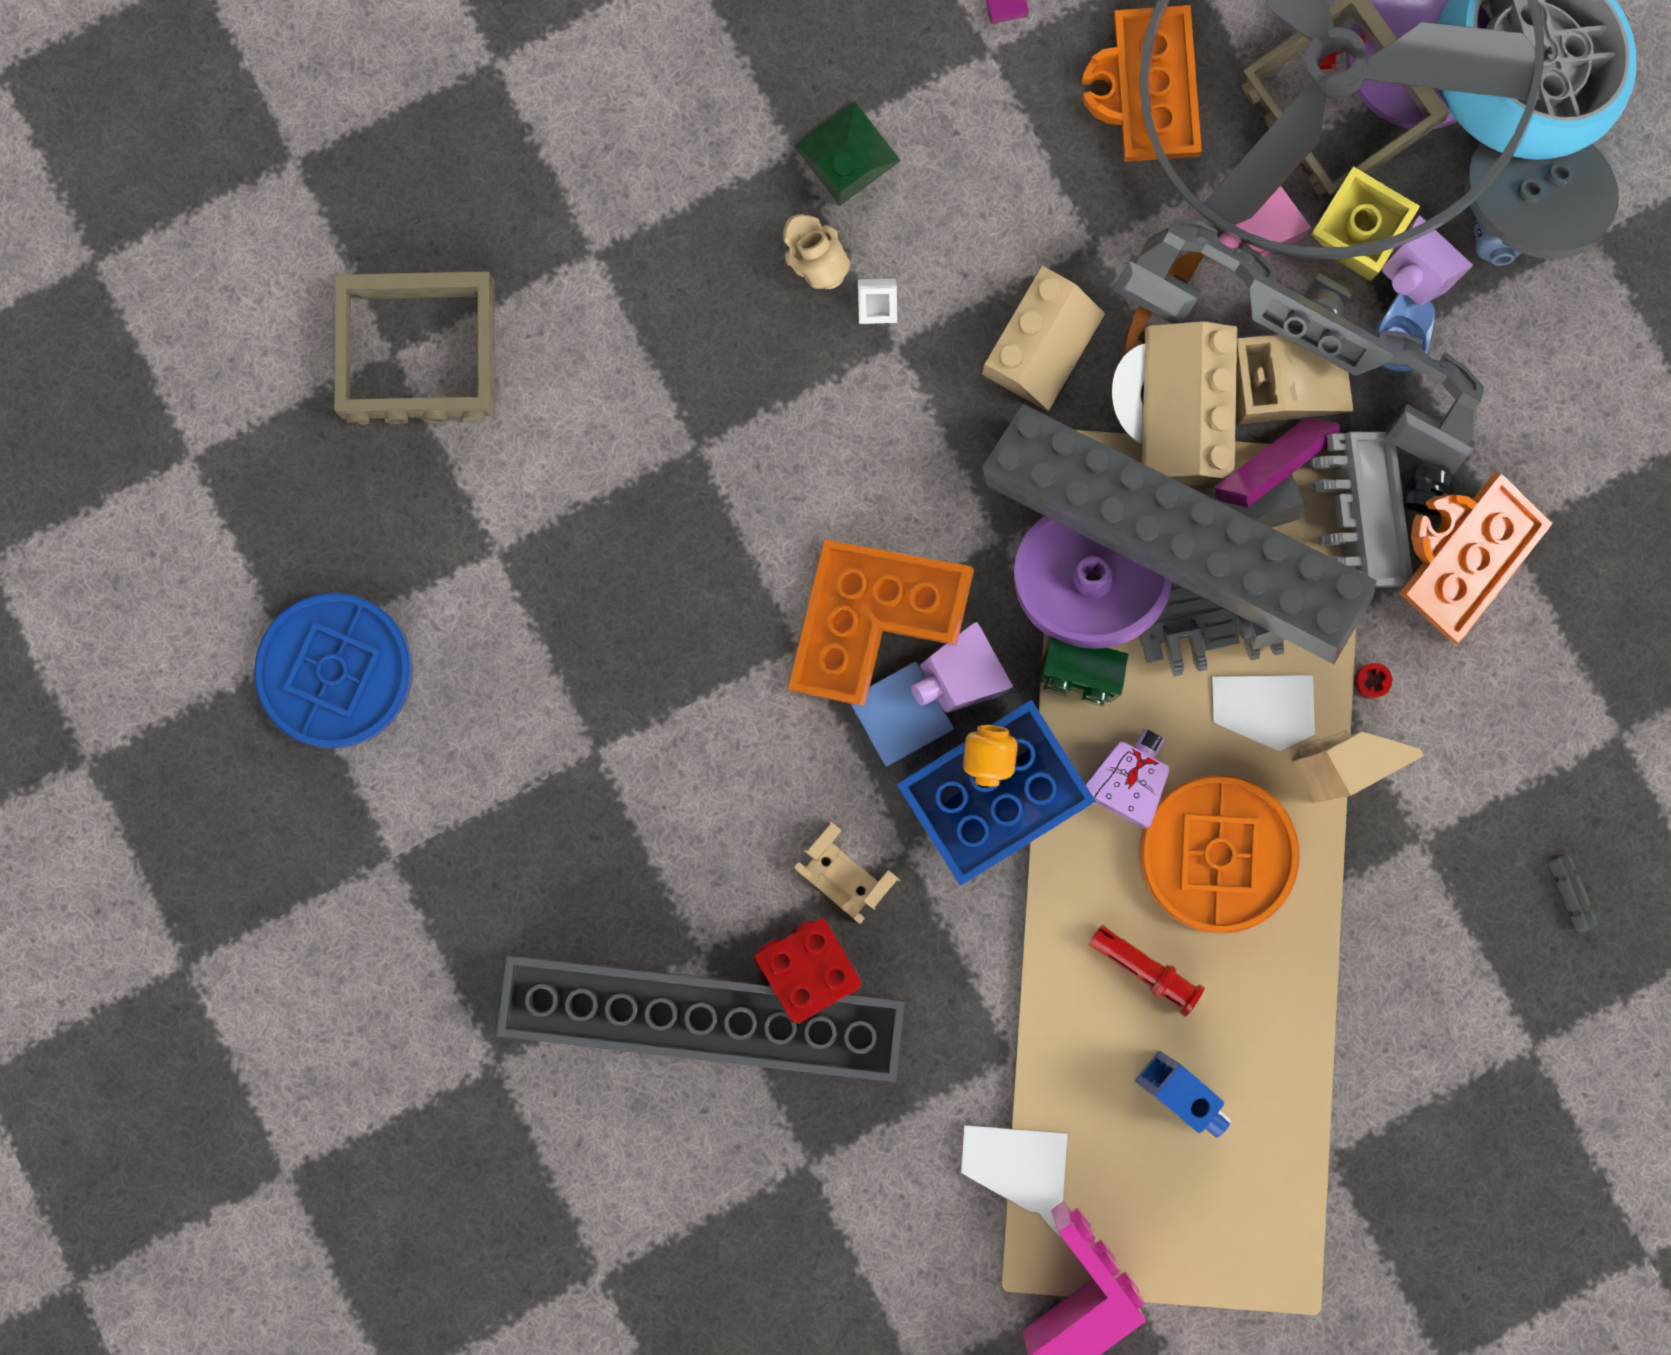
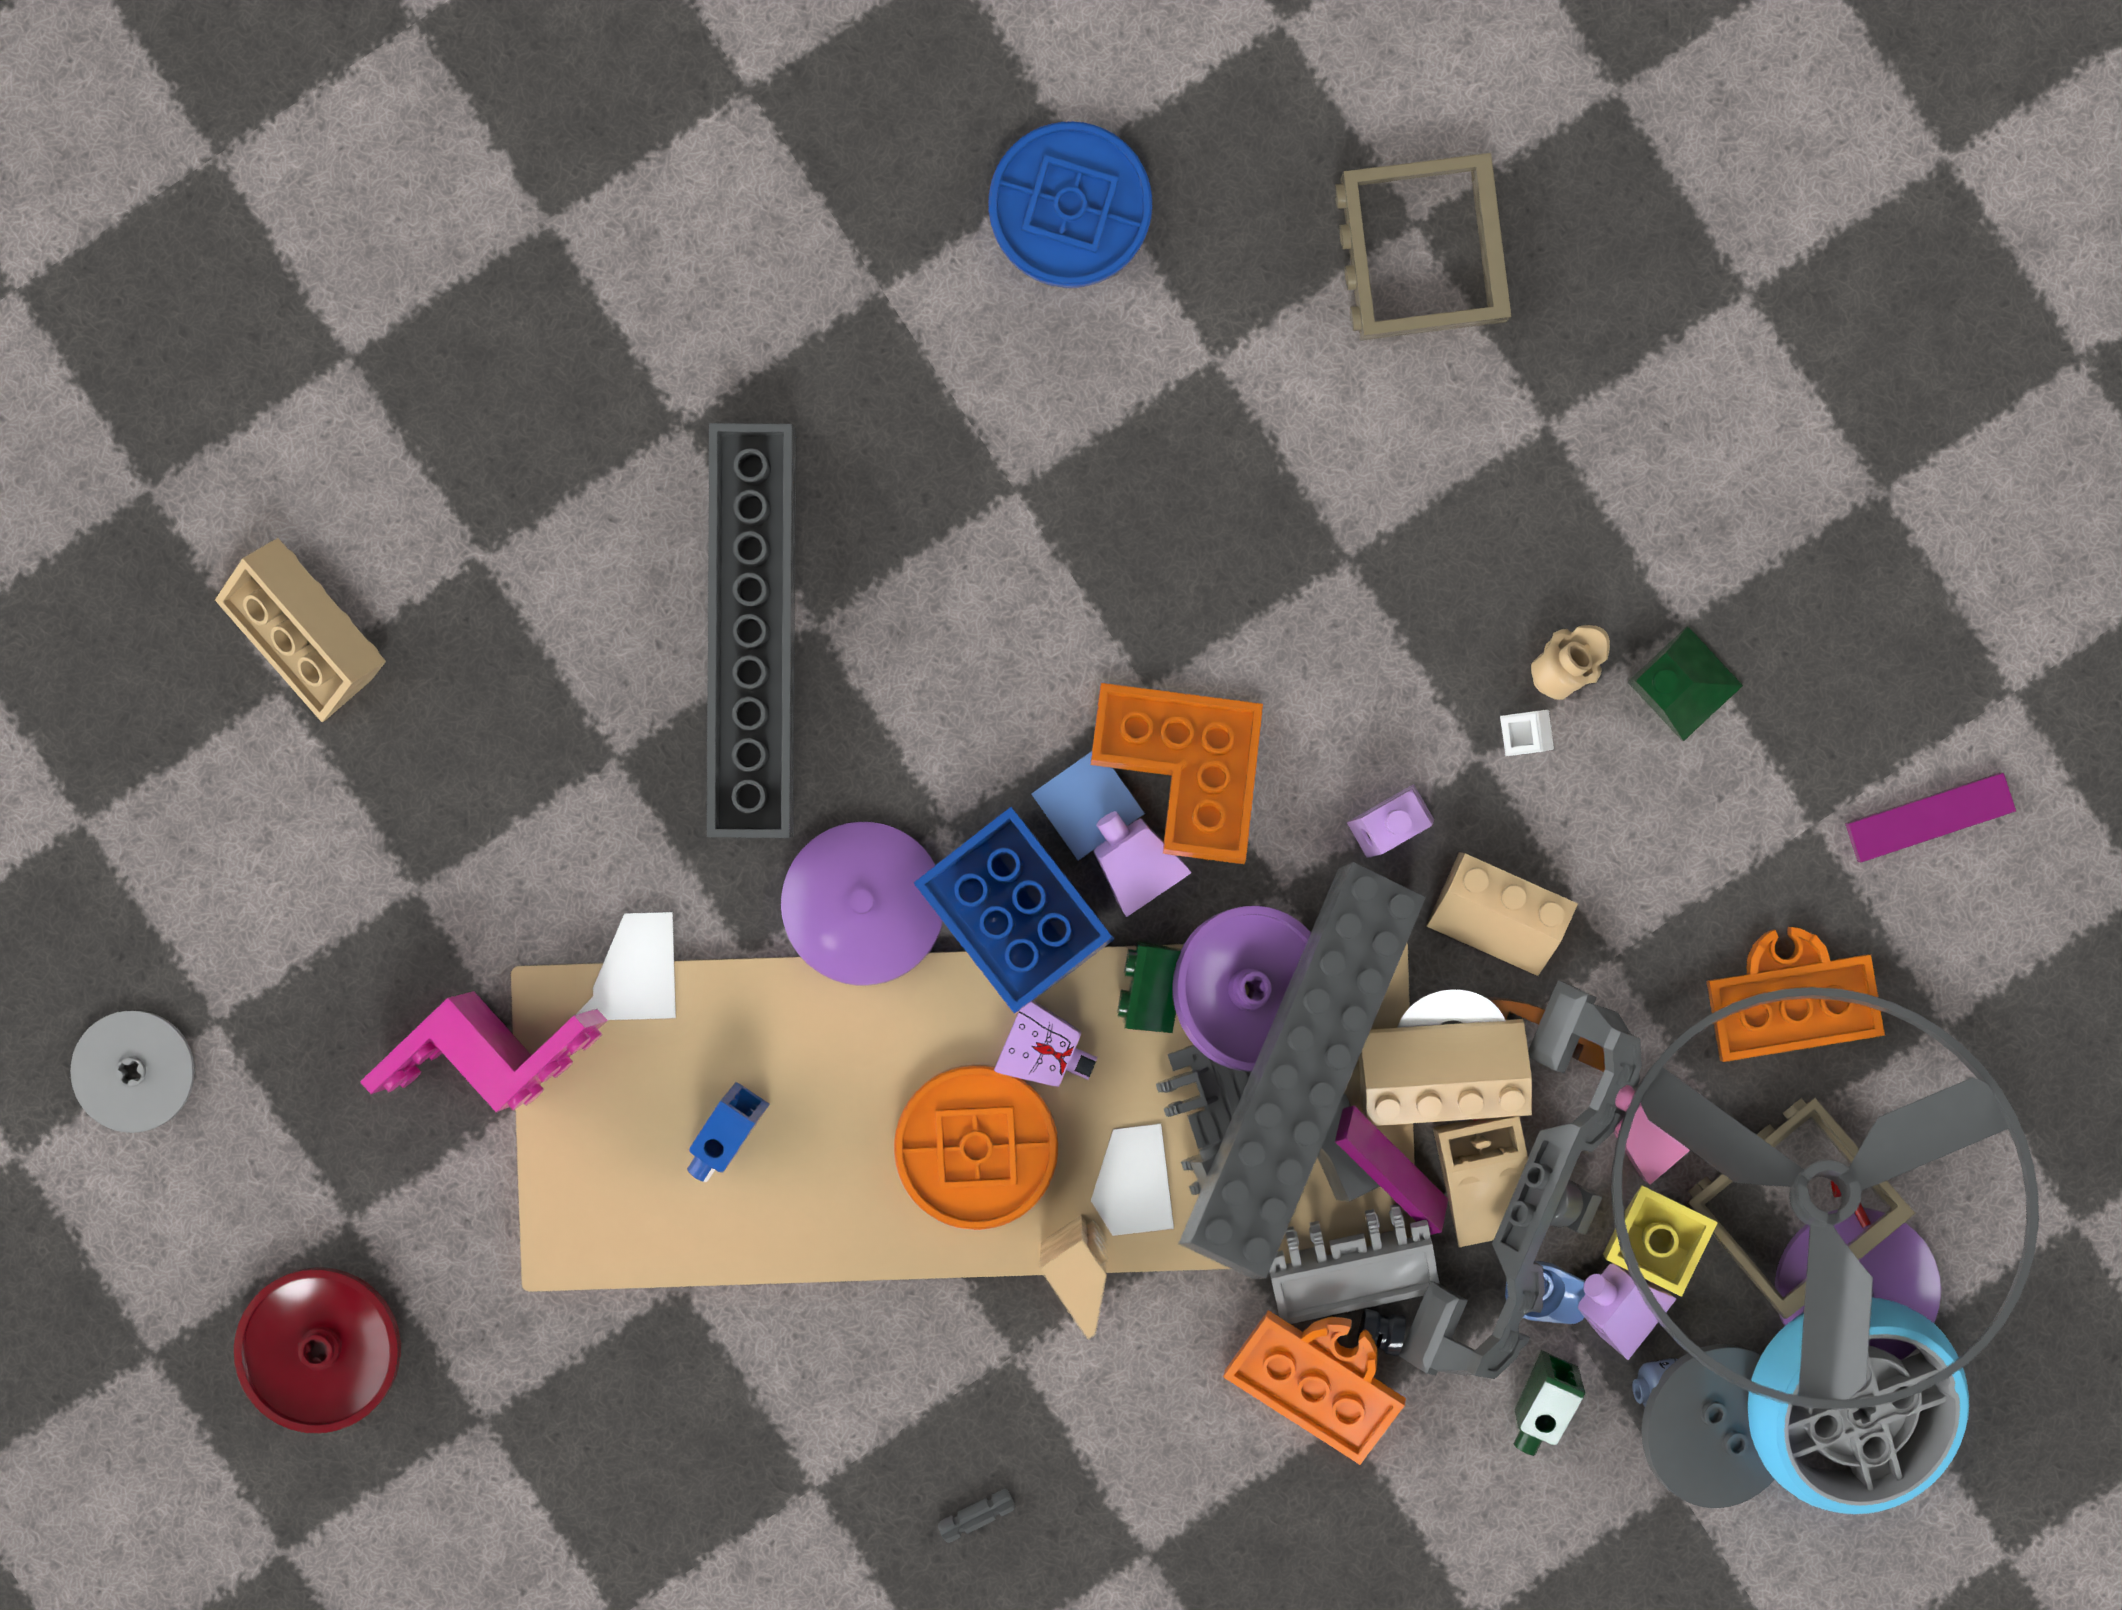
camera: 80 degrees right, 5 degrees up
(807, 970) = (810, 734): red bracket -> none
(843, 876) = (912, 761): tan piece -> none
(948, 431) = (1391, 822): none -> lavender torso
(975, 944) = (856, 904): none -> medium lavender dish
(990, 755) = (1049, 899): light orange head -> none
(1161, 979) = (841, 1099): red pin -> none
(1384, 685) = (1178, 1279): red bush -> none
(1507, 342) = (1547, 1402): none -> dark green torso

